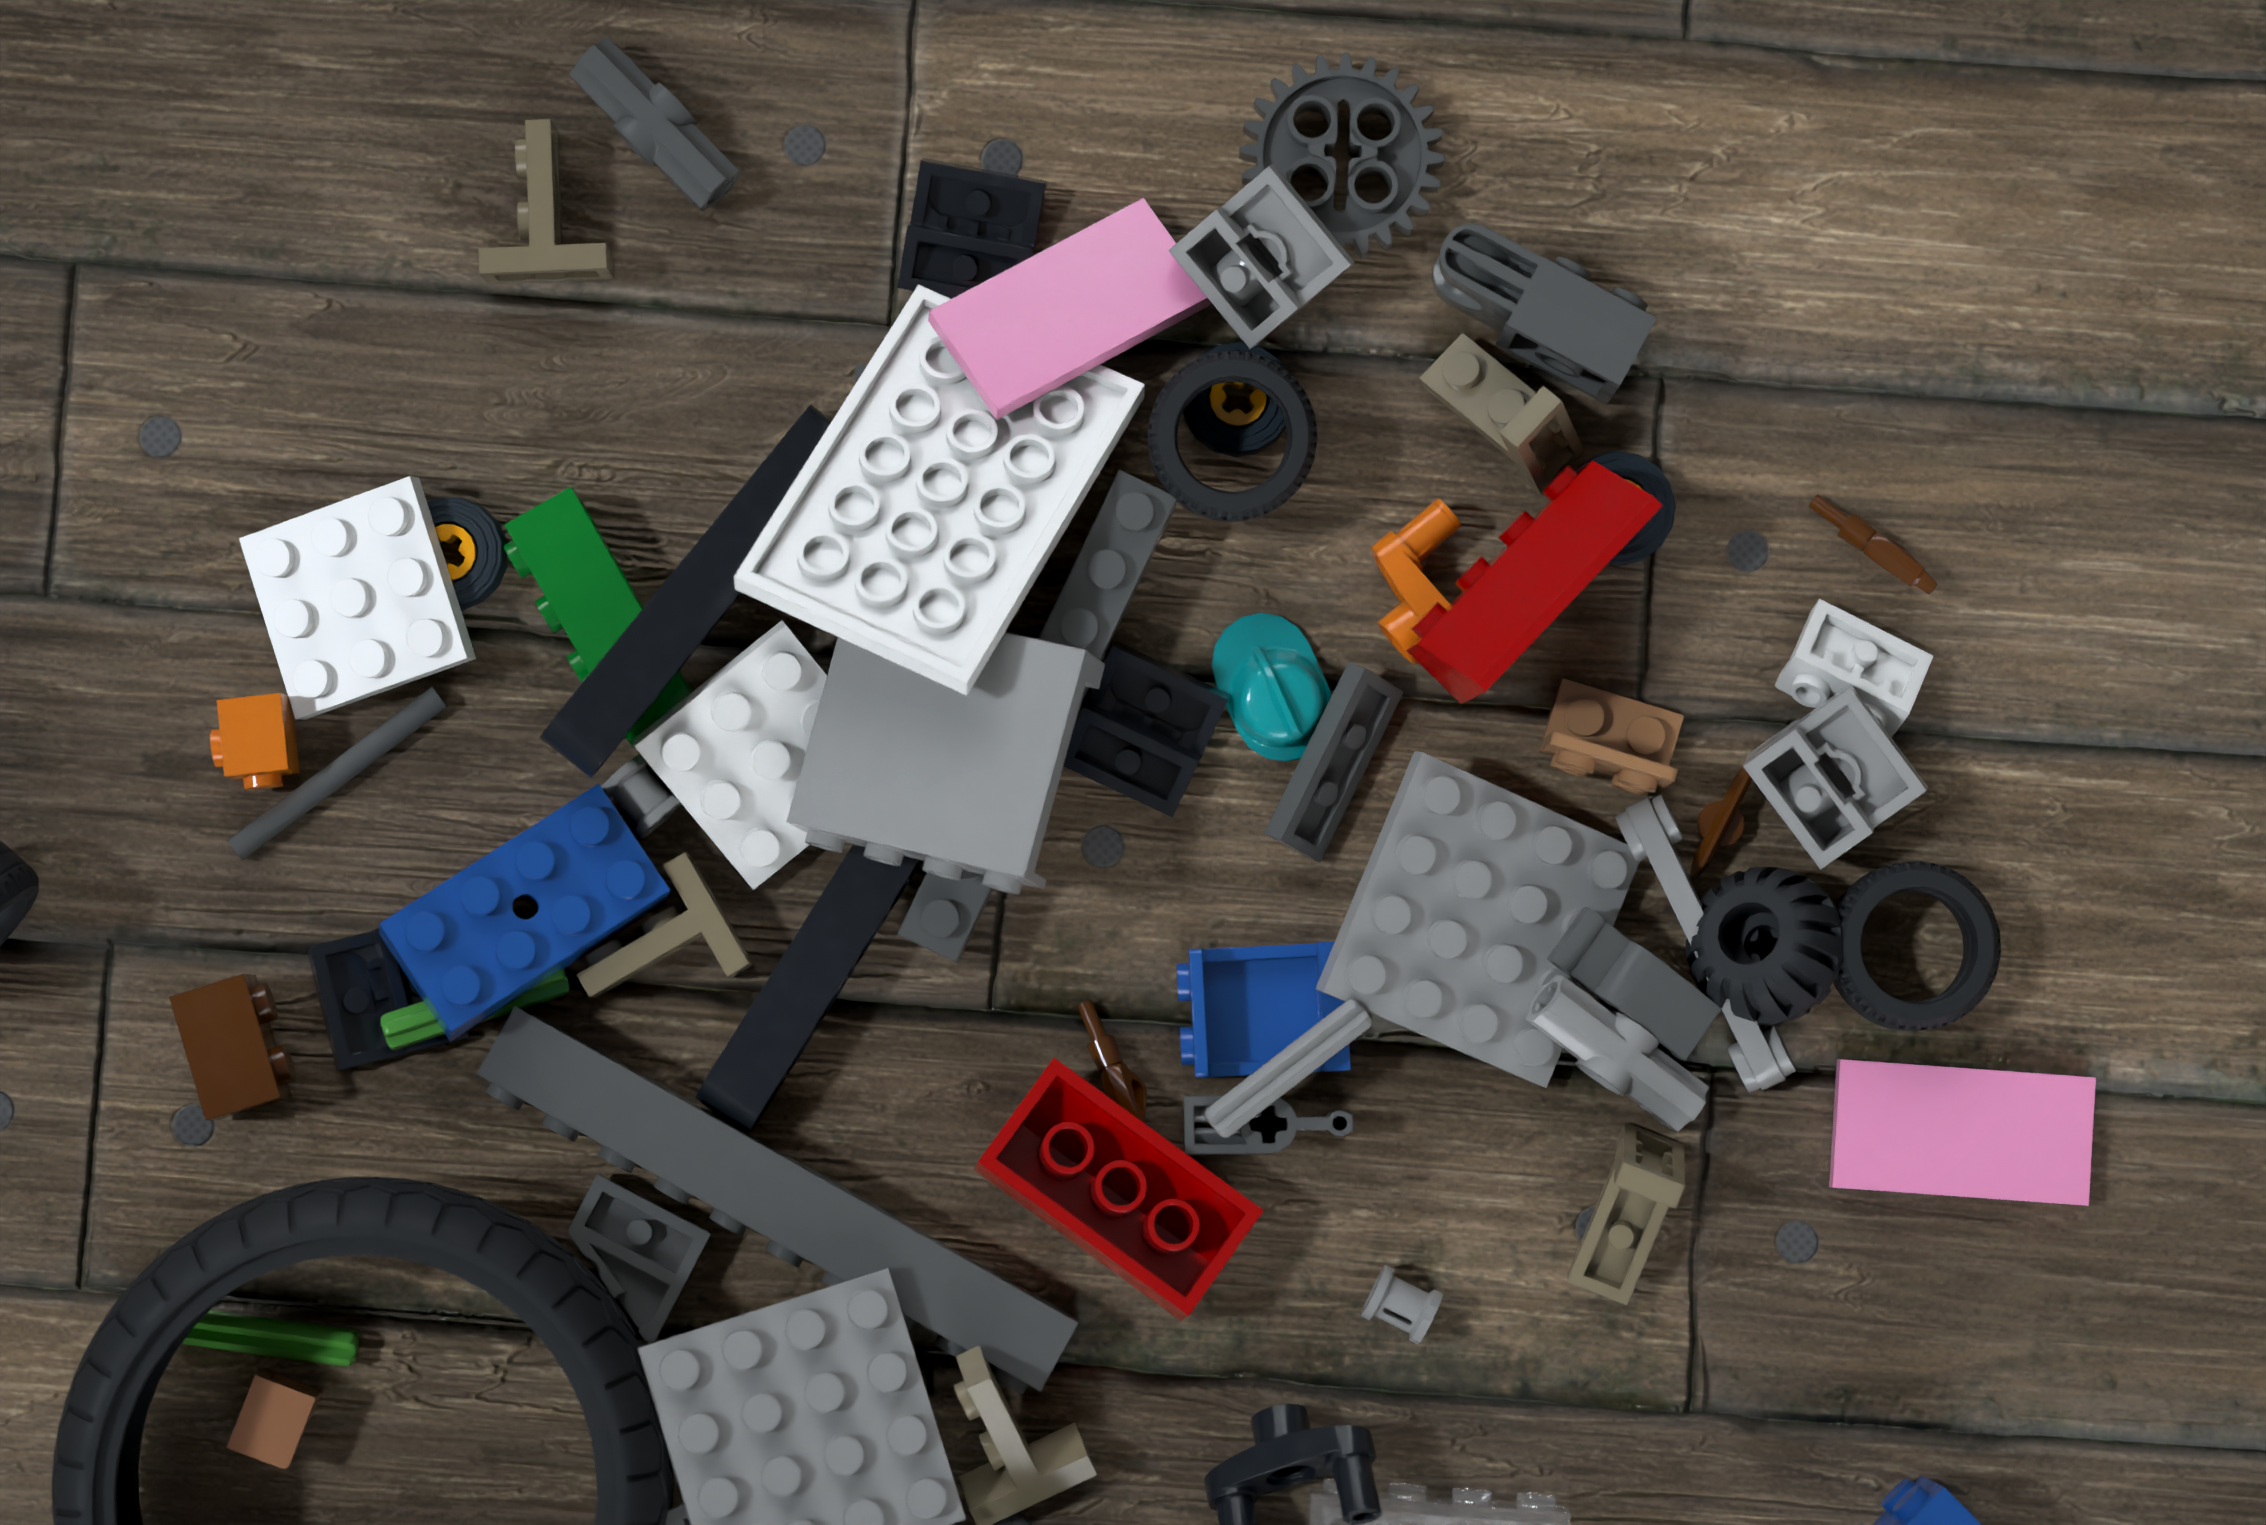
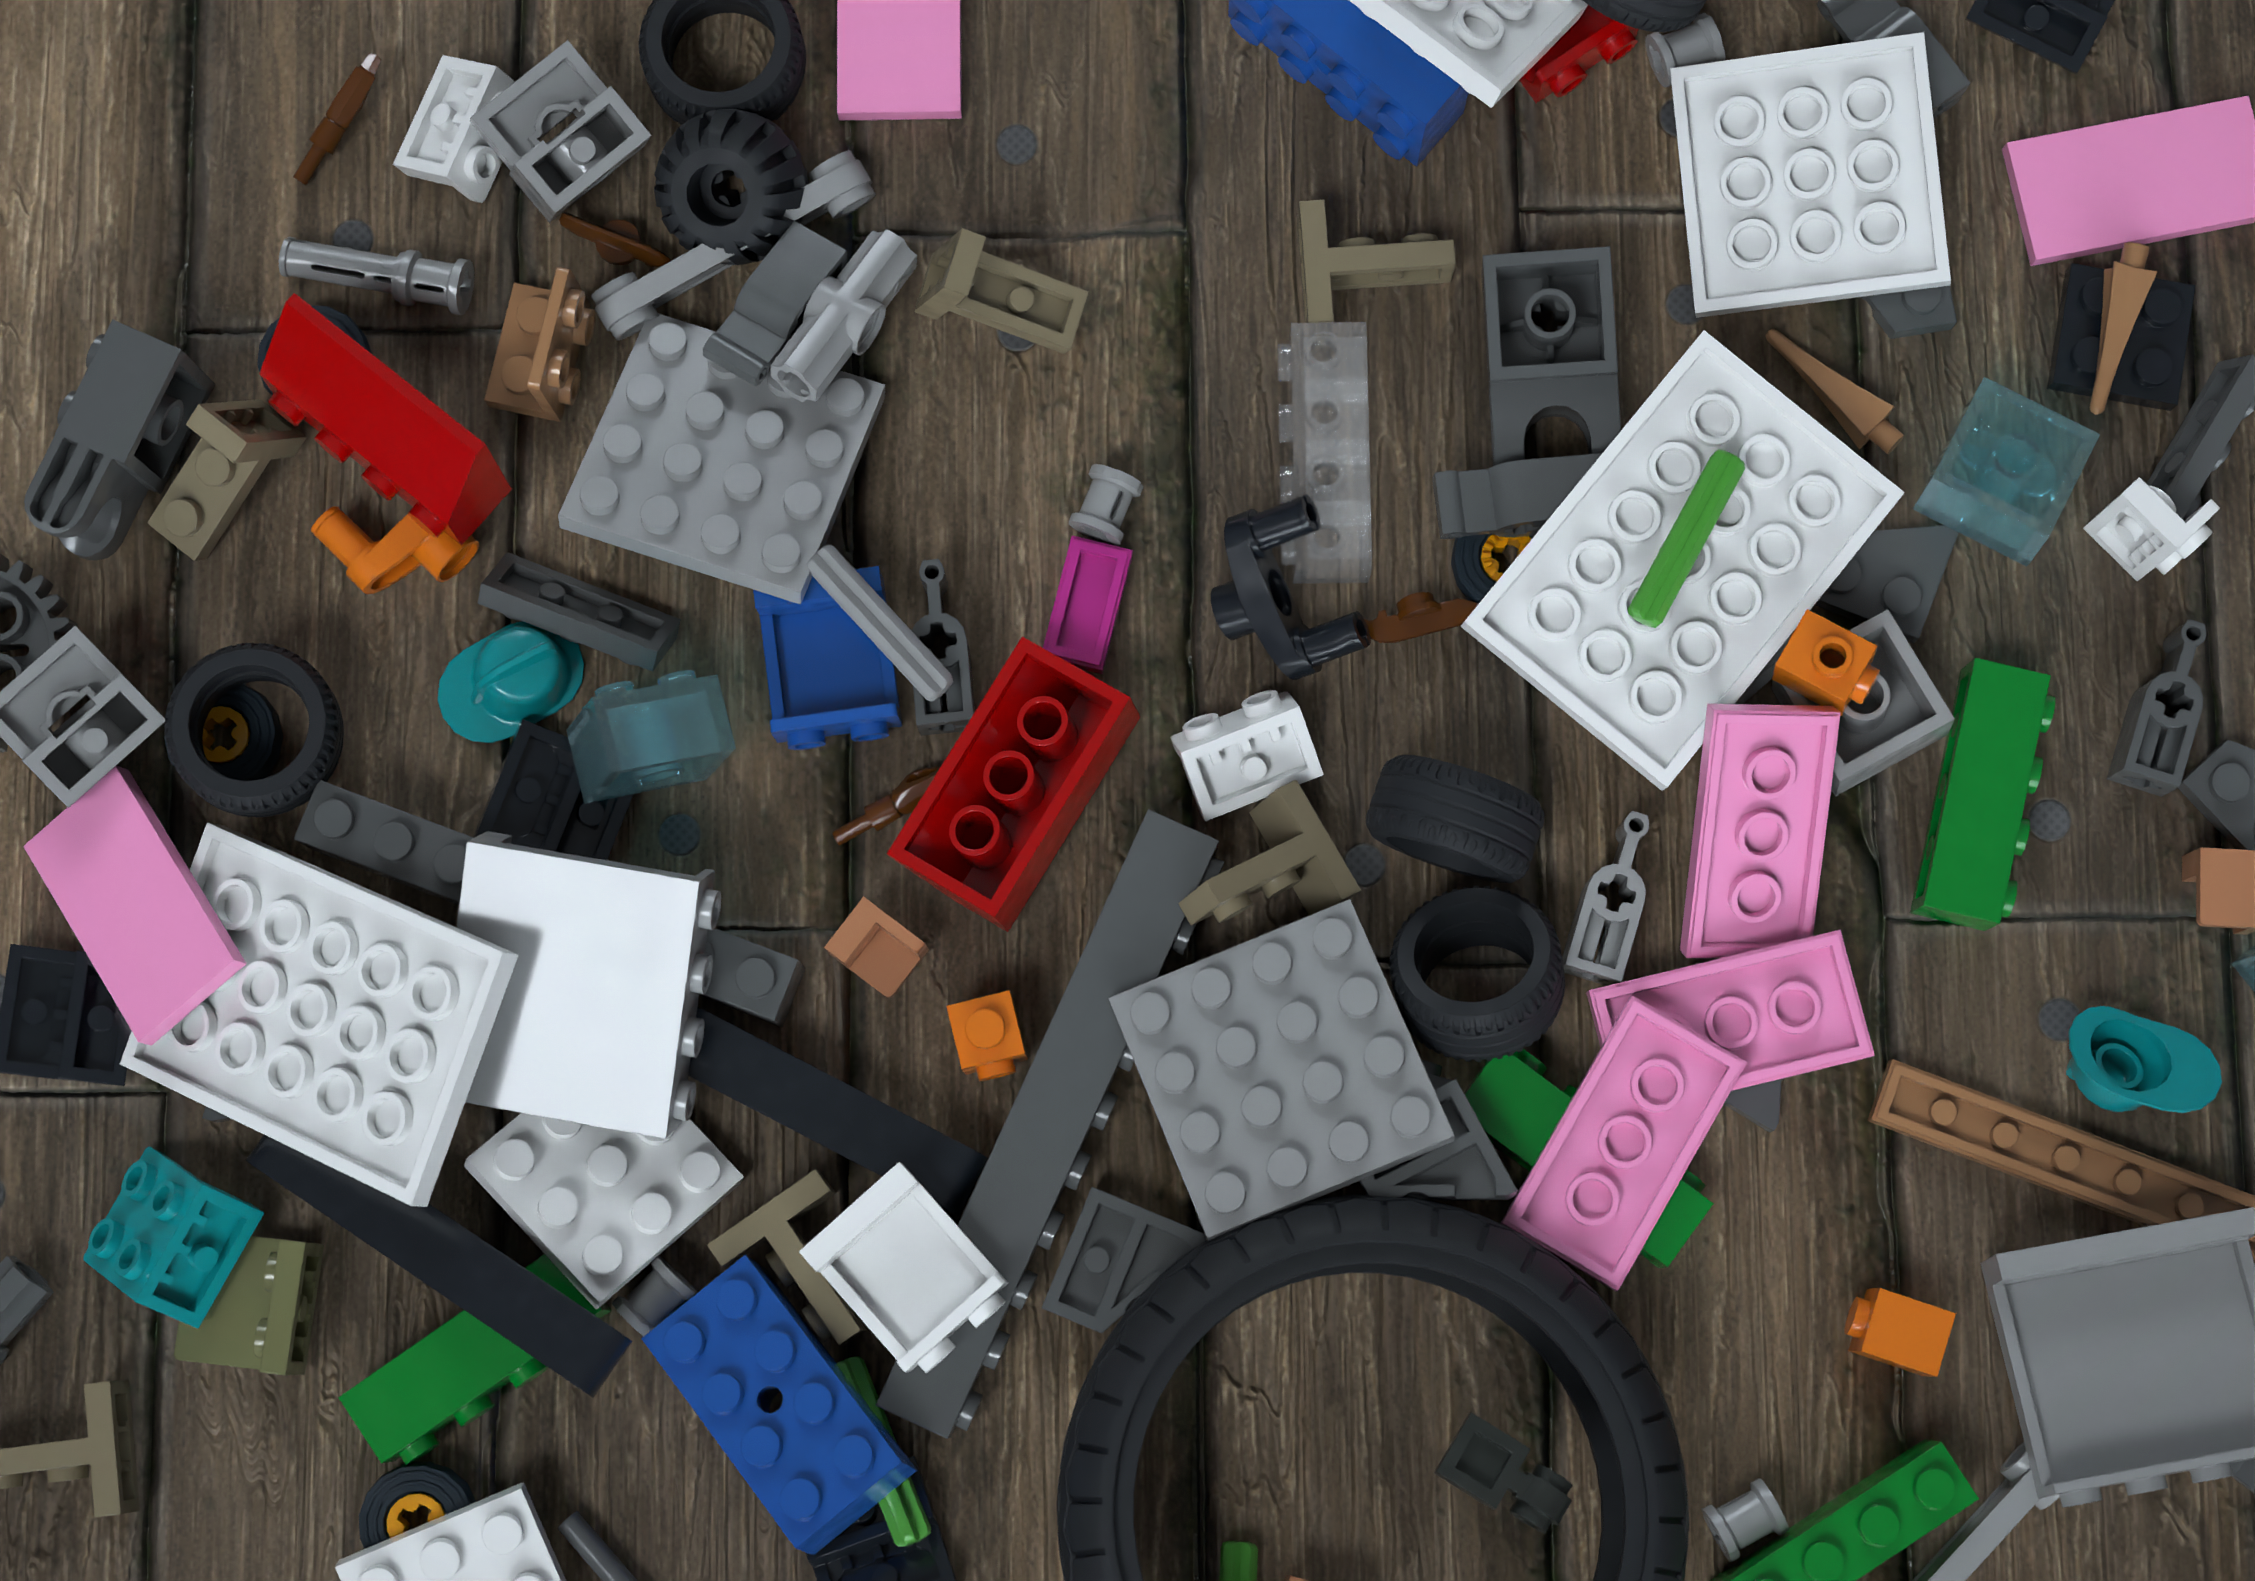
camera: 90 degrees left, 5 degrees down
(638, 1049) = (906, 1269): none -> white panel
(674, 400) = (261, 1311): none -> olive bracket
(742, 327) = (171, 1238): none -> teal bracket
(867, 1143) = (987, 1035): none -> orange brick
(967, 1037) = (876, 948): none -> nougat panel
(1133, 1425) = (1246, 752): none -> white bracket
(1188, 817) = (650, 736): none -> clear light blue brick
(1302, 1276) = (1087, 603): none -> dark pink tile
(1699, 605) = (405, 277): none -> light grey pin

